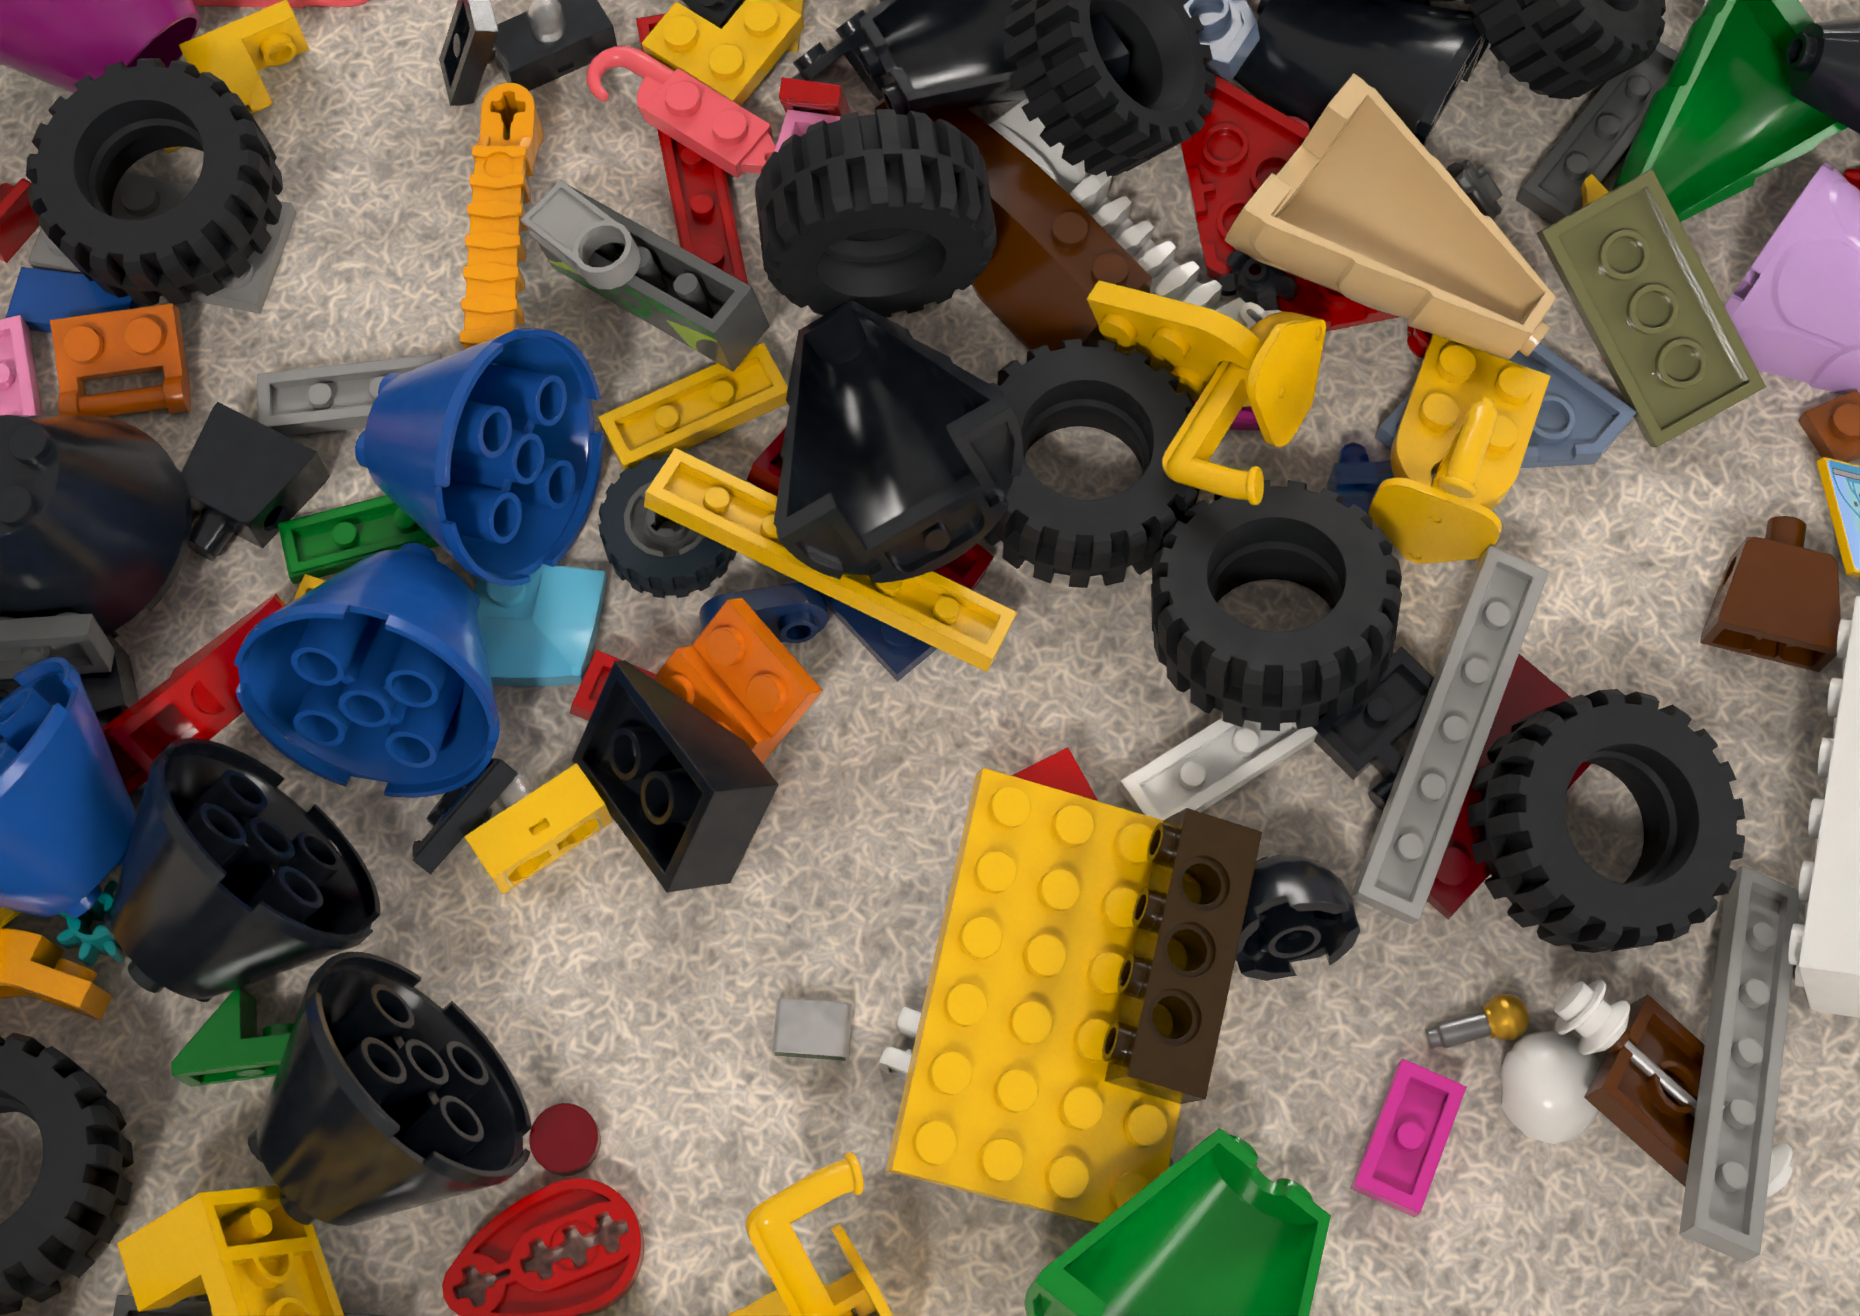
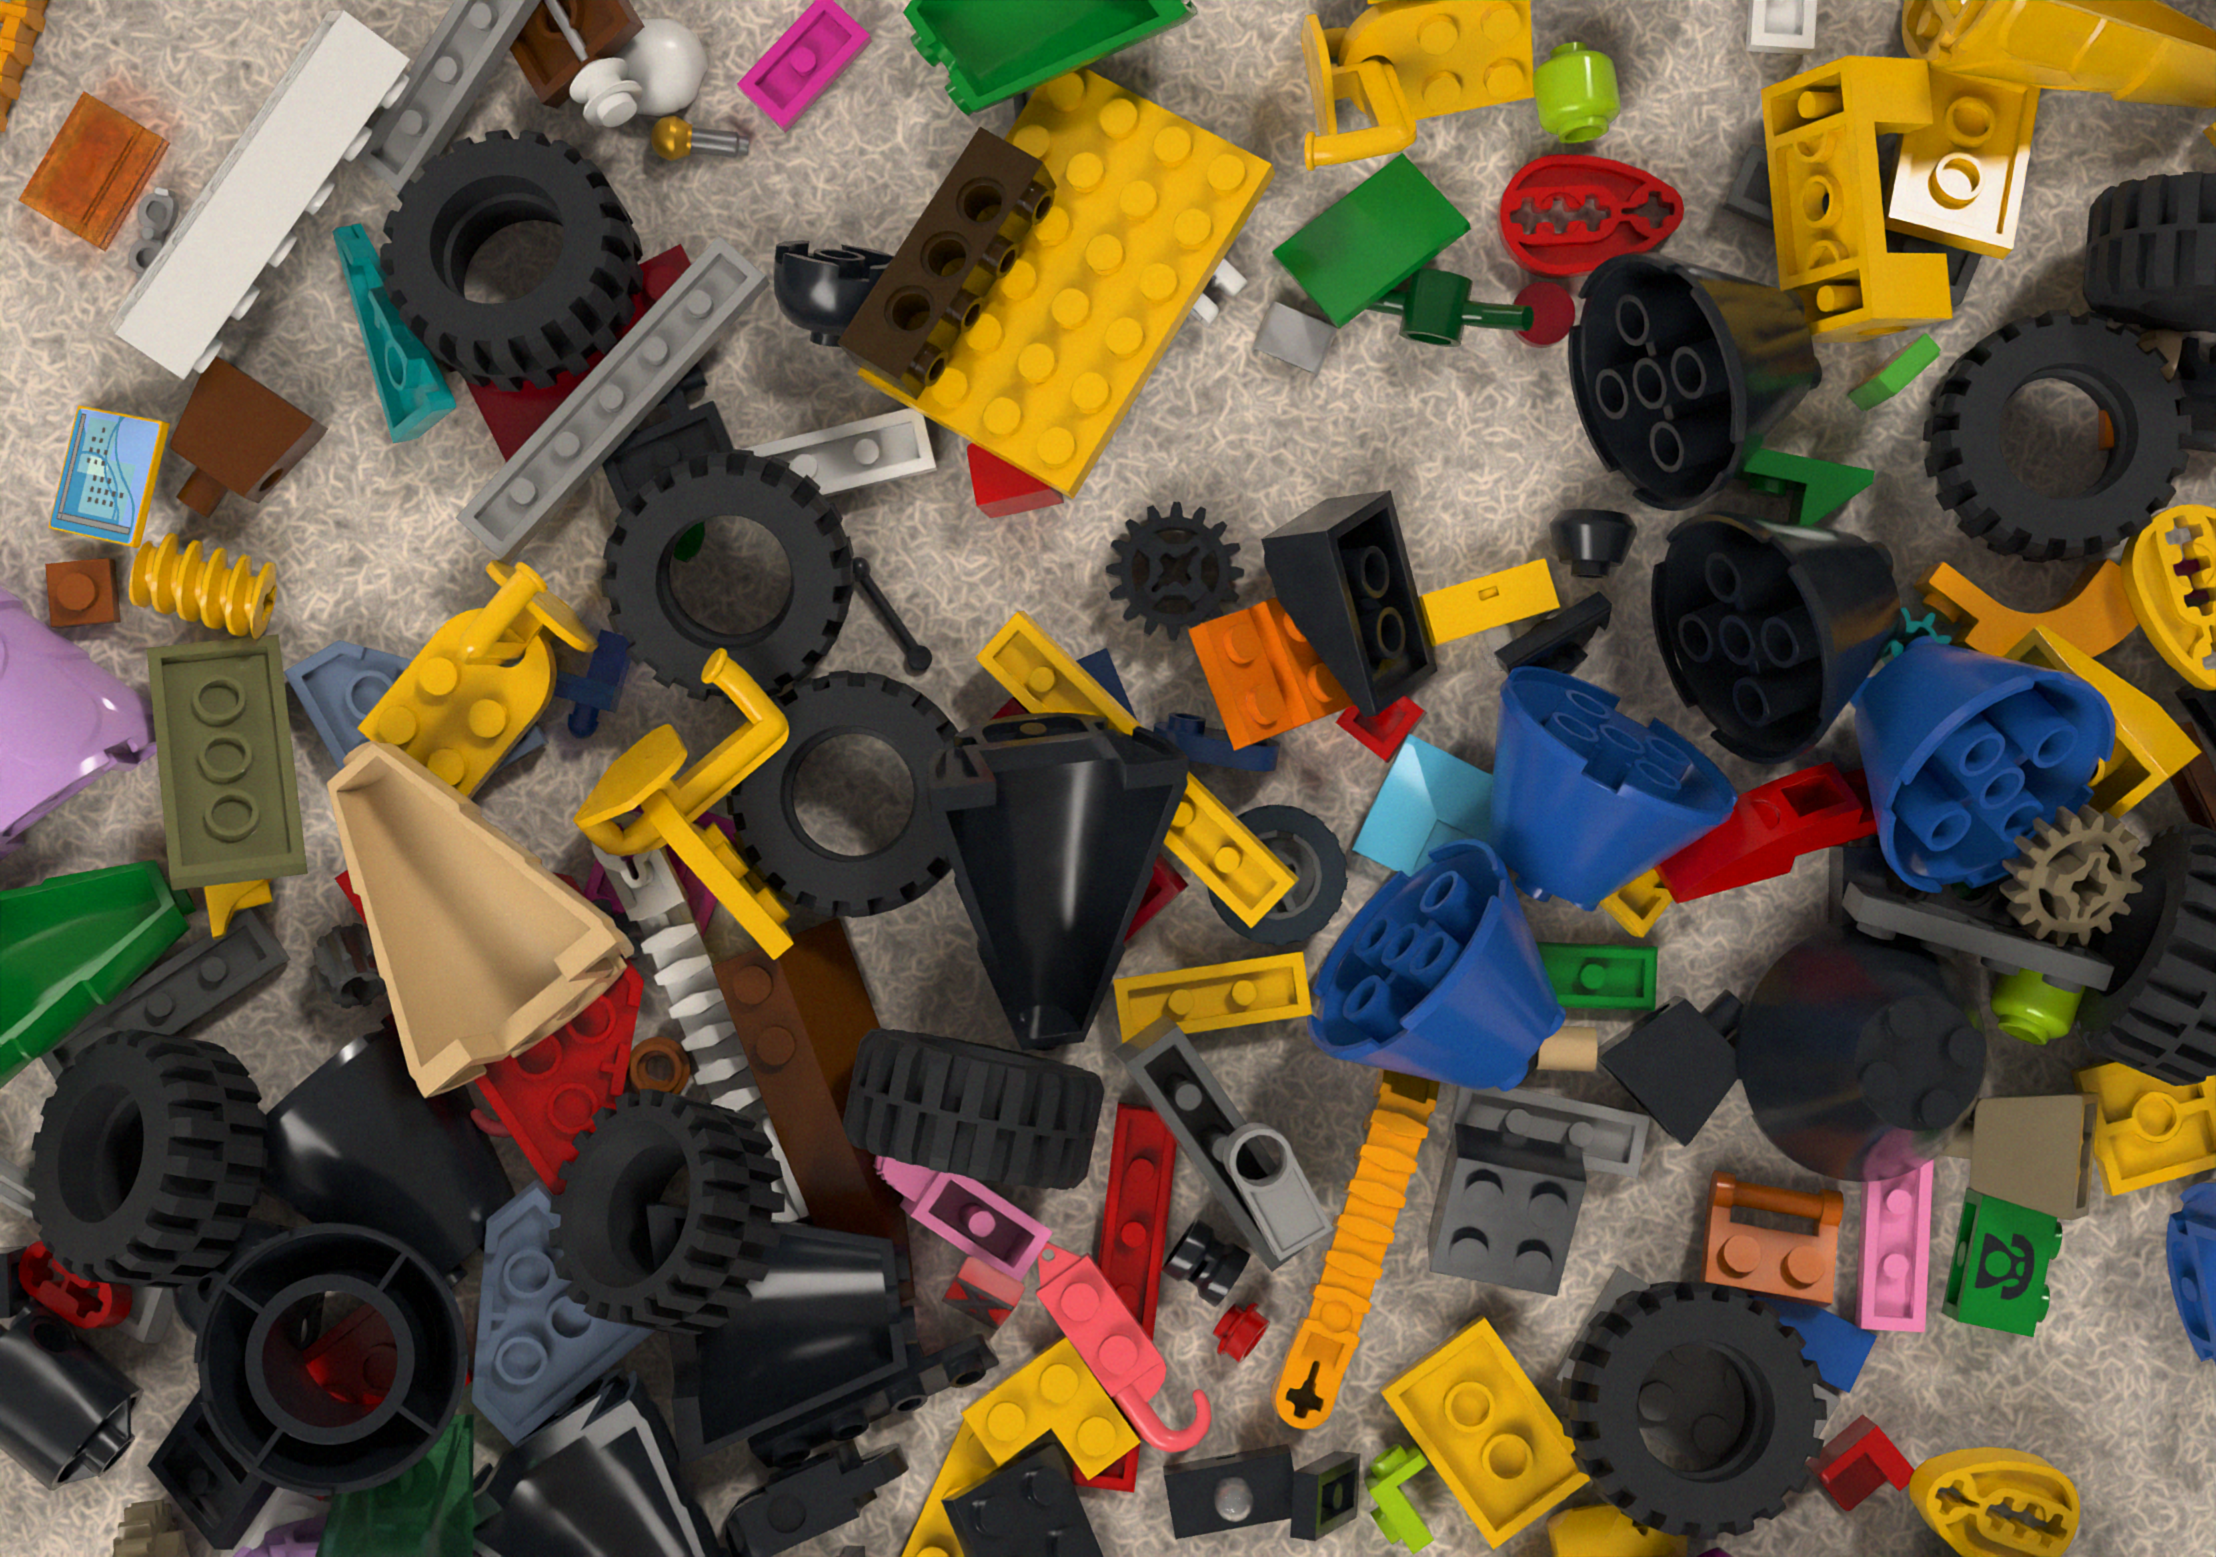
camera: 165 degrees left, 20 degrees up
(169, 1177) = (1895, 373): none -> bright green tile
(343, 469) = (1569, 1050): none -> tan hinge
(347, 147) = (1486, 1431): none -> yellow plate
(370, 305) = (1506, 1209): none -> black brick
(409, 69) = (1395, 1512): none -> lime bracket
(450, 922) = (1592, 540): none -> black cone
(583, 159) = (1240, 1331): none -> red plate
(634, 197) = (1206, 1262): none -> black wheel
(676, 1102) = (1440, 306): none -> dark green piece
(762, 1140) = (1371, 240): none -> green piece
(878, 774) = (1154, 550): none -> black gear
(1070, 618) = (918, 656): none -> black hinge
(1166, 194) = (665, 1047): none -> dark orange plate
(1632, 673) = (403, 369): none -> teal wing
(1741, 457) = (204, 588): none -> yellow piece

